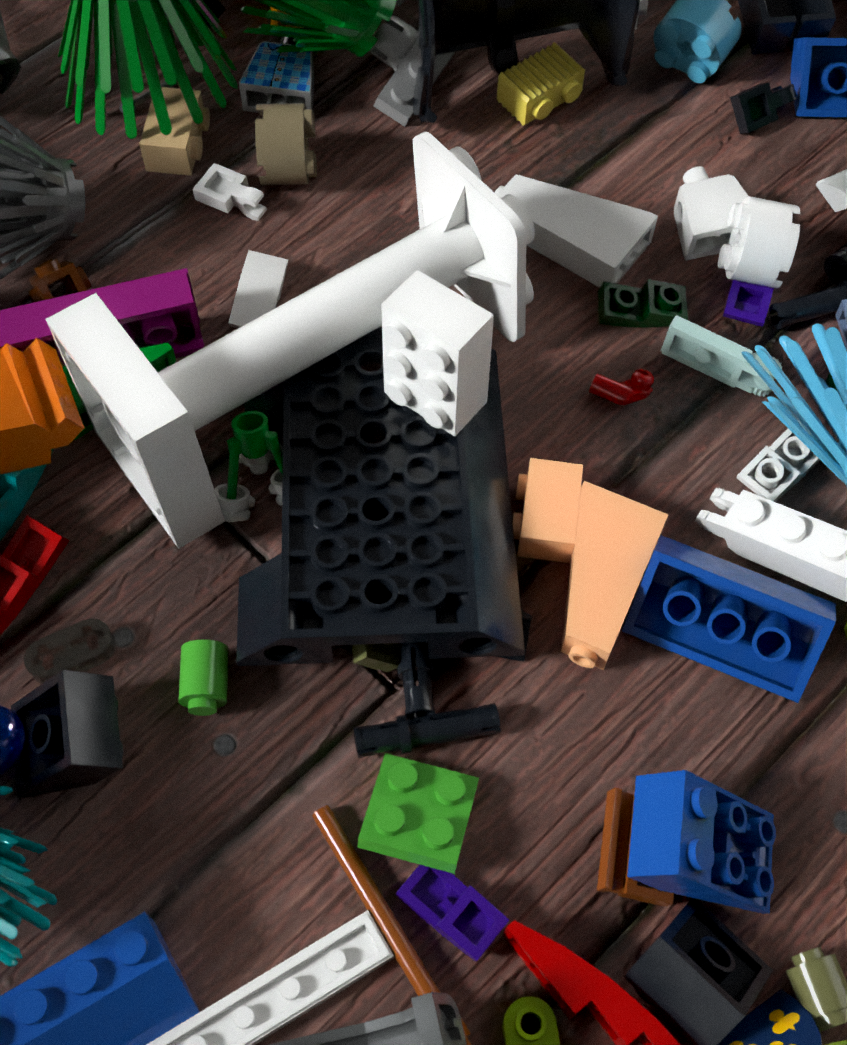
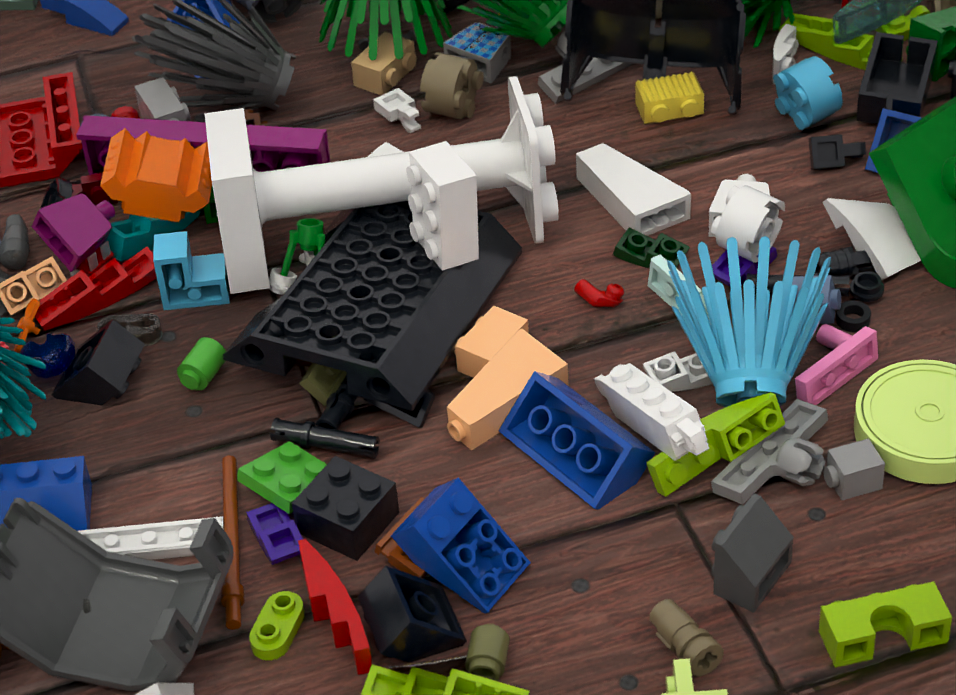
camera: 30 degrees right, 20 degrees down
(112, 544) = (185, 278): none -> medium azure brick
(524, 836) = (346, 508): none -> black piece

